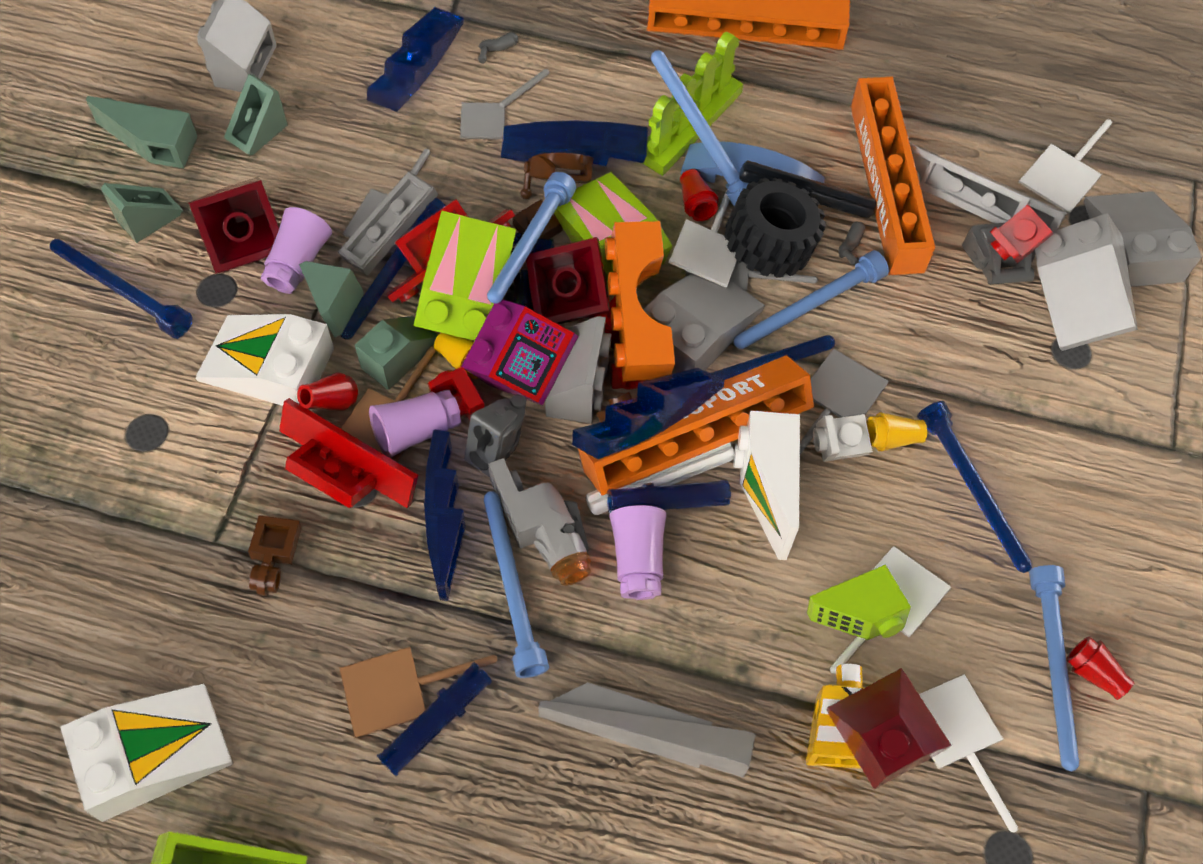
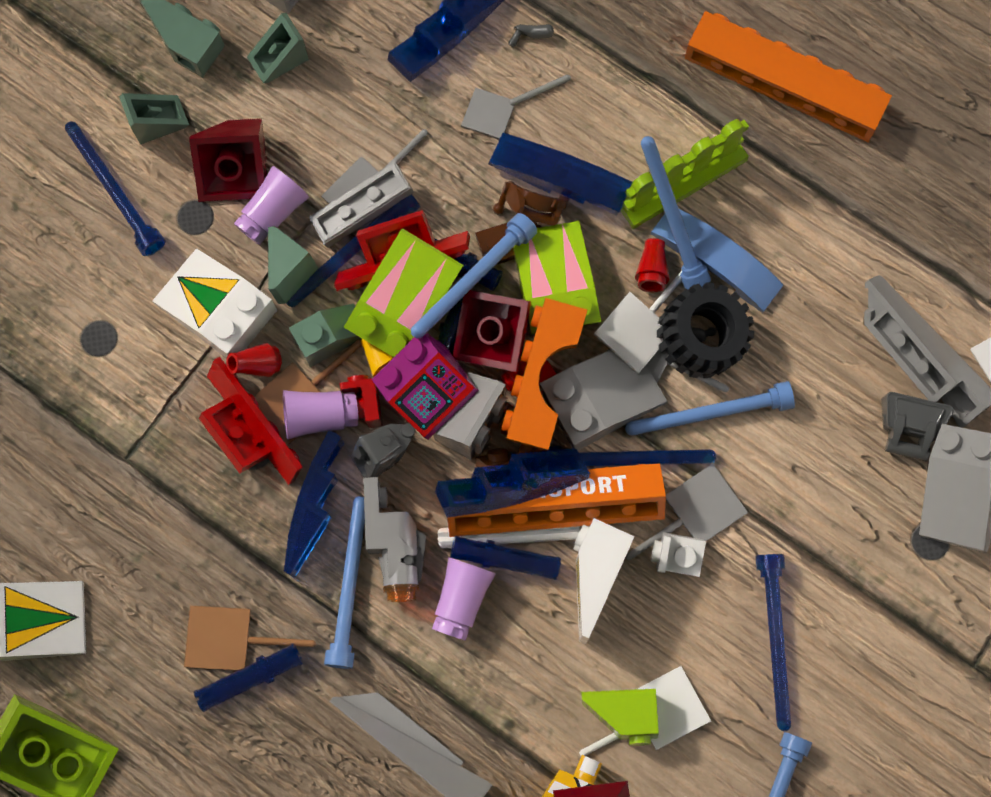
camera: 25 degrees right, 15 degrees up
(272, 543) = (170, 481): reddish brown plate -> none
(825, 194) = (756, 299): black axle -> none
(851, 242) = (777, 361): dark grey piece -> none
(892, 176) = (841, 309): orange brick -> none
(893, 431) = (727, 565): yellow cone -> none
(1020, 235) = (923, 422): bracket -> none

